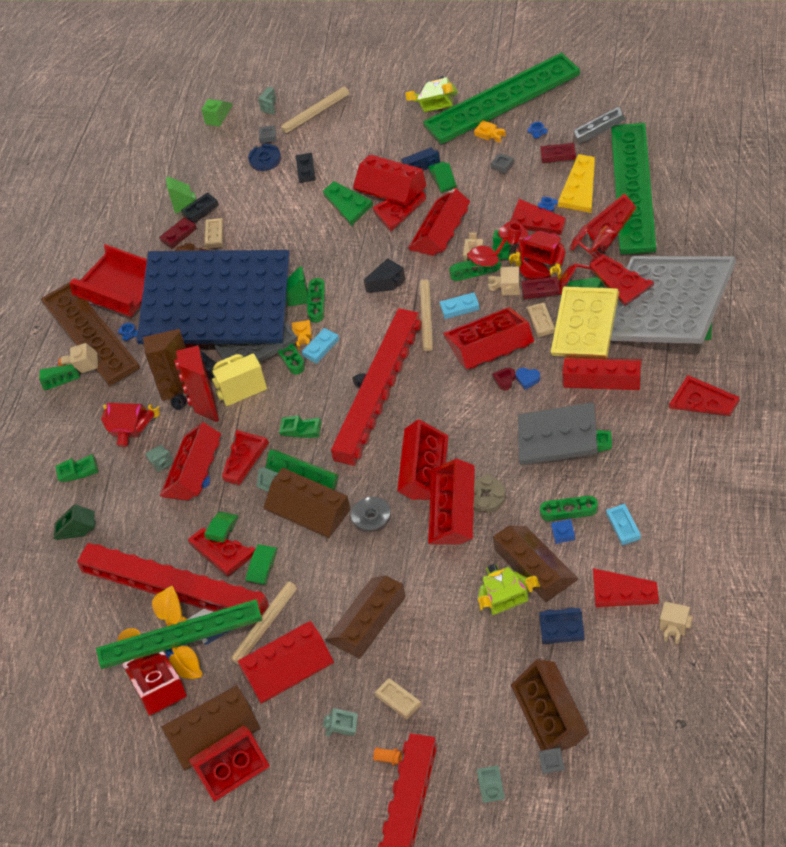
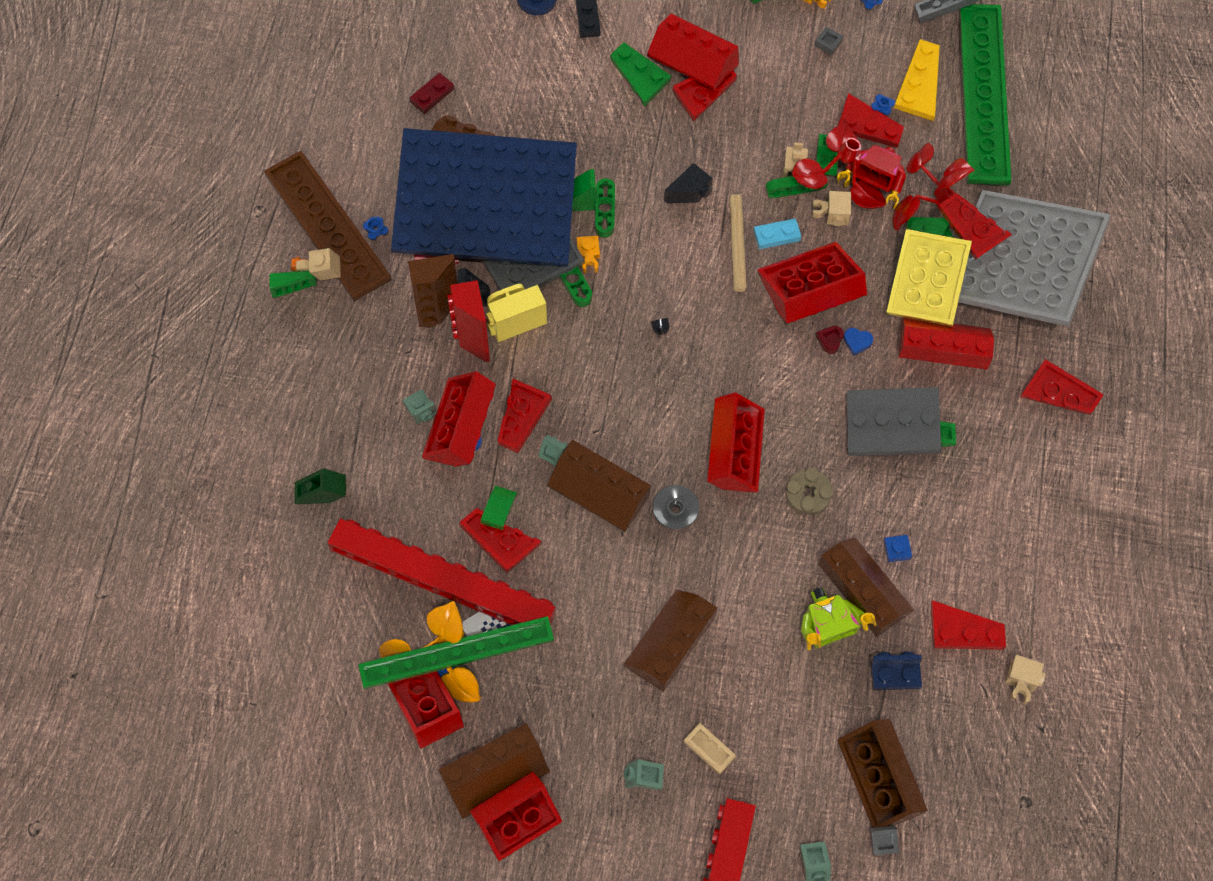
camera: 10 degrees left, 15 degrees up
(71, 470) = (321, 412): green slope -> none
(113, 281) = (358, 157): red panel -> none
(127, 420) = (379, 354): red torso -> none
(177, 400) = (438, 330): black hinge -> none
(179, 194) = (436, 43): bright green slope -> none
(200, 207) = (459, 61): black plate -> none
(214, 233) = (477, 99): tan plate -> none
(260, 564) = (547, 561): green slope -> none
(267, 617) = (558, 629): tan axle -> none
(278, 460) = (570, 429): green plate -> none
(285, 662) = (579, 693): red slope -> none
(296, 427) = (590, 382): green slope -> none
(320, 345) = (611, 271): medium azure plate -> none
(376, 387) = (680, 337): red brick -> none
(387, 755) = (699, 820): orange pin -> none
(422, 159) = (731, 24): dark blue bracket -> none
(440, 223) = (753, 118): red slope -> none
(442, 176) = (756, 50): green slope -> none
(451, 503) = (772, 504): red slope -> none
(540, 287) = (874, 220): dark red plate -> none
(541, 319) = (874, 264): tan plate -> none
(558, 152) = (895, 34): dark red plate -> none
(575, 501) = (911, 512): green beam -> none
(613, 217) = (960, 139): red wing -> none
(623, 524) = (967, 547): medium azure plate -> none

